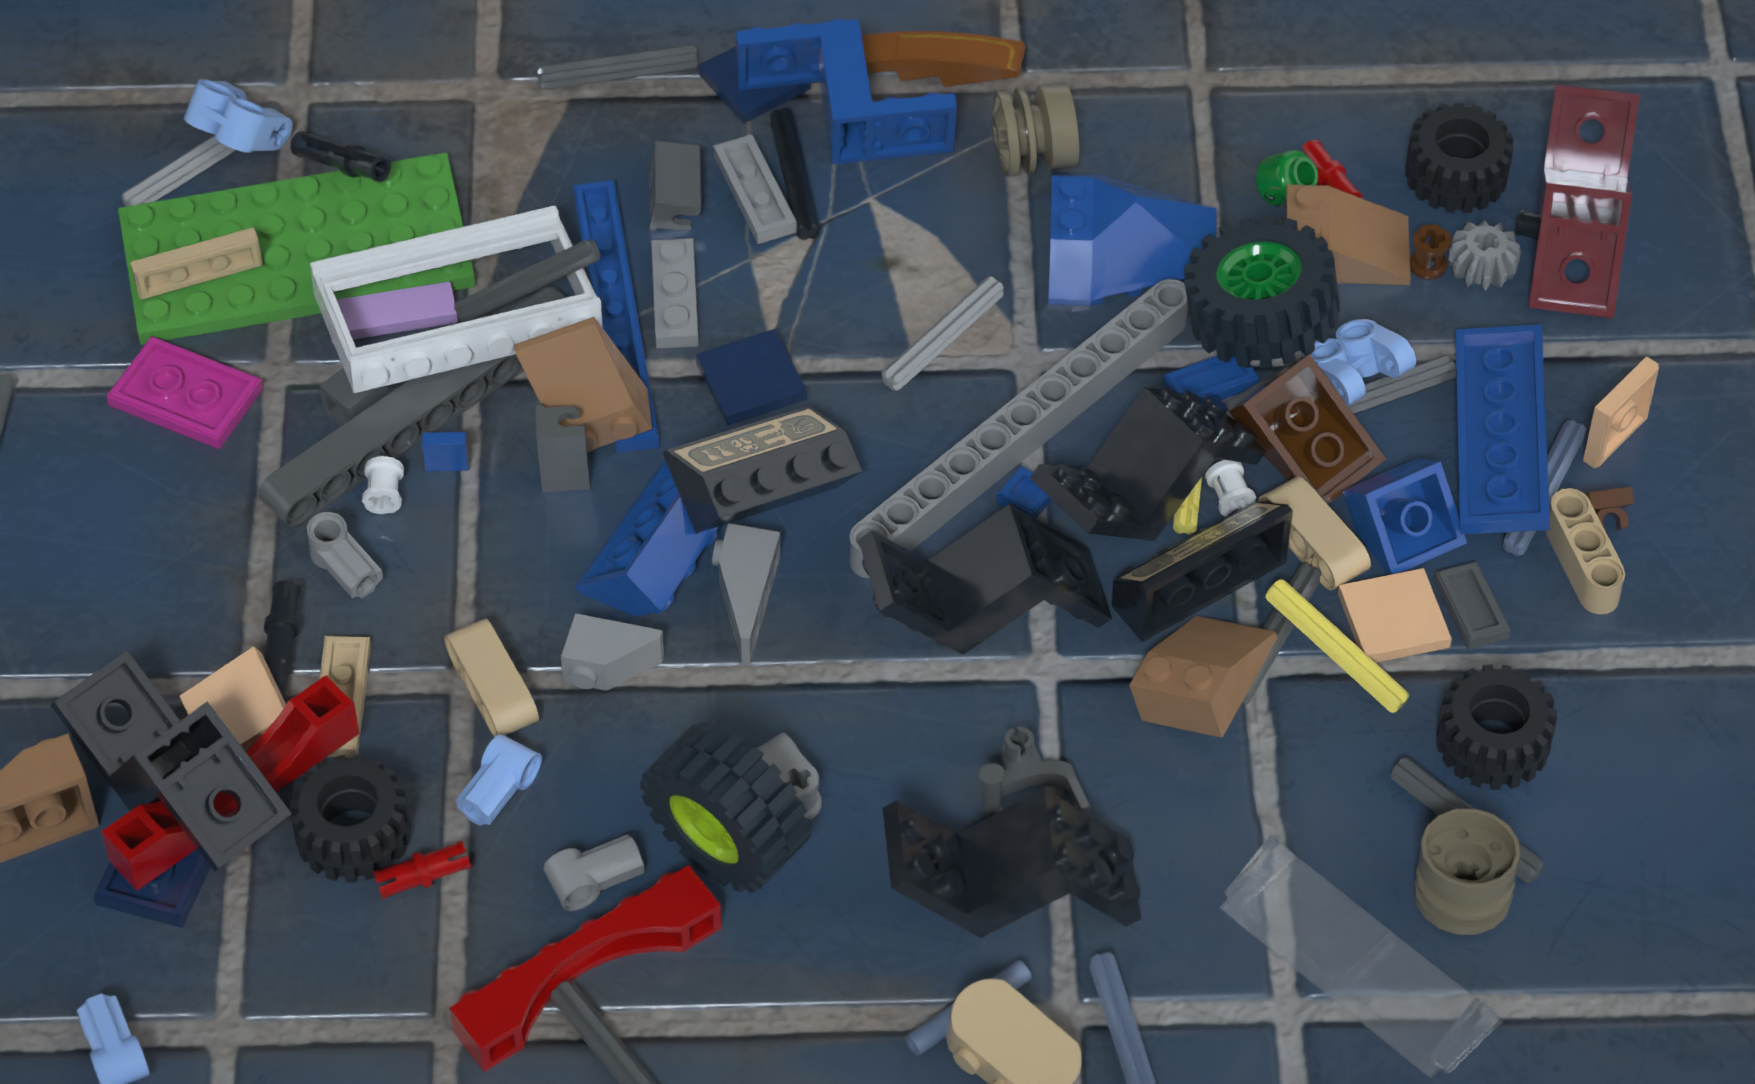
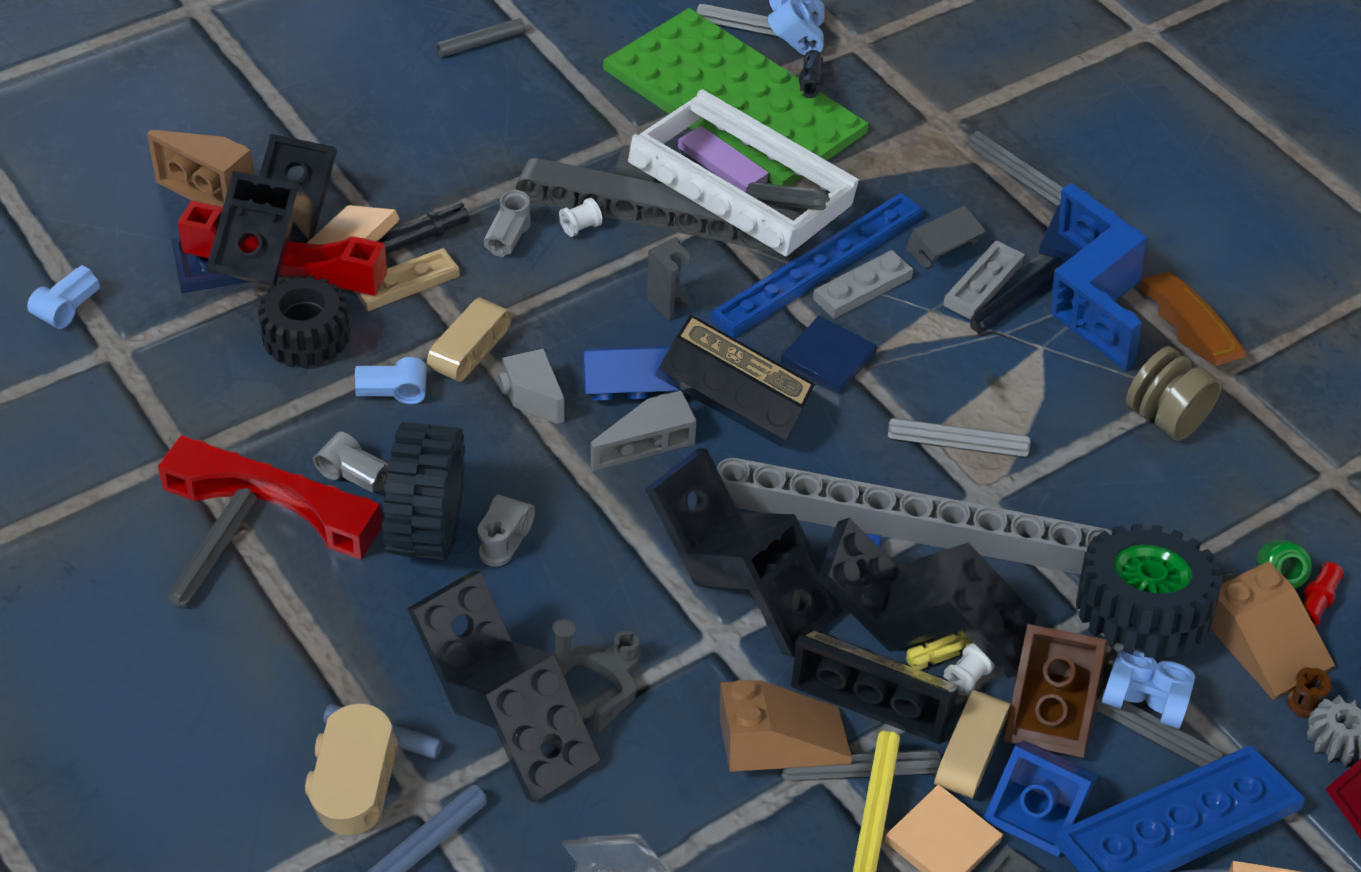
camera: 55 degrees right, 5 degrees down
(185, 392) = (581, 102): dark pink tile -> none
(196, 263) = (666, 49): tan tile -> none
(422, 869) = (294, 378): red pin -> none
(445, 451) = (630, 232): blue tile -> none
(588, 372) = (722, 259): medium nougat slope -> none
(1118, 237) = (1131, 480): blue wedge -> none
(1212, 378) = (1055, 609): blue tile -> none

